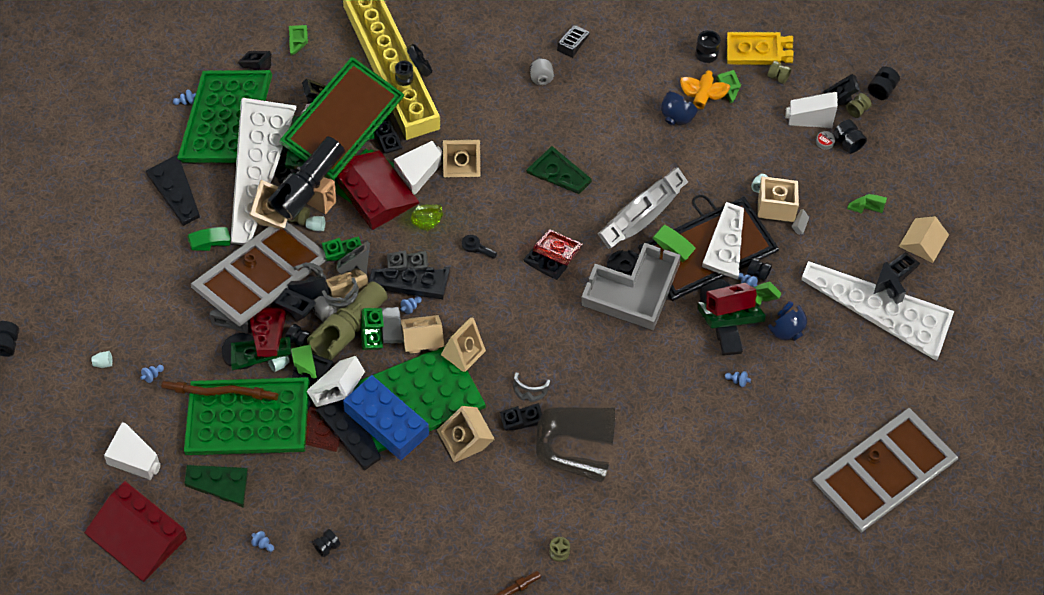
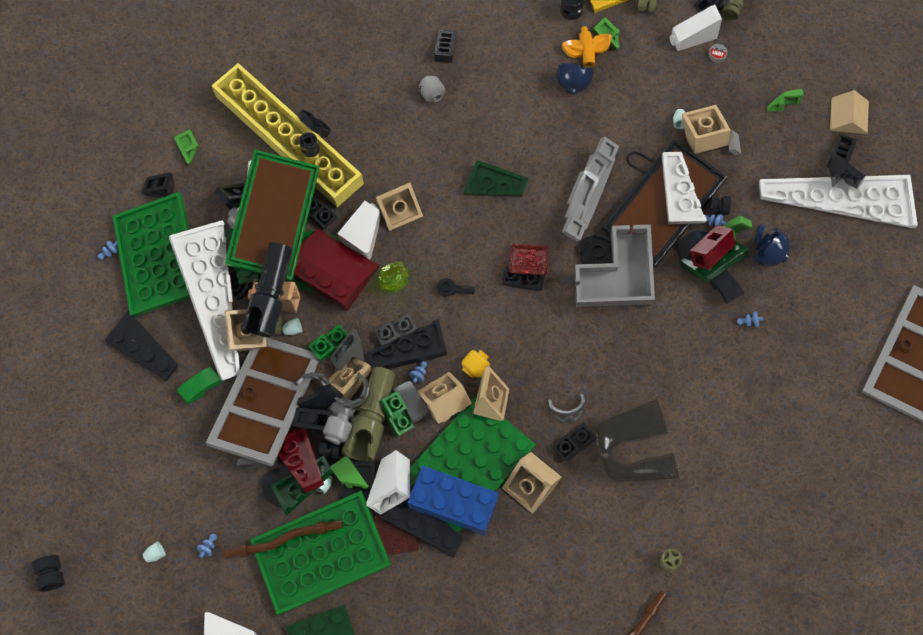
camera: 15 degrees left, 10 degrees up
(311, 316) = (337, 429): none -> light grey head
(463, 313) = (475, 363): none -> yellow head
(676, 243) = (634, 211): bright green slope -> none
(849, 136) = (739, 41): black wheel -> none

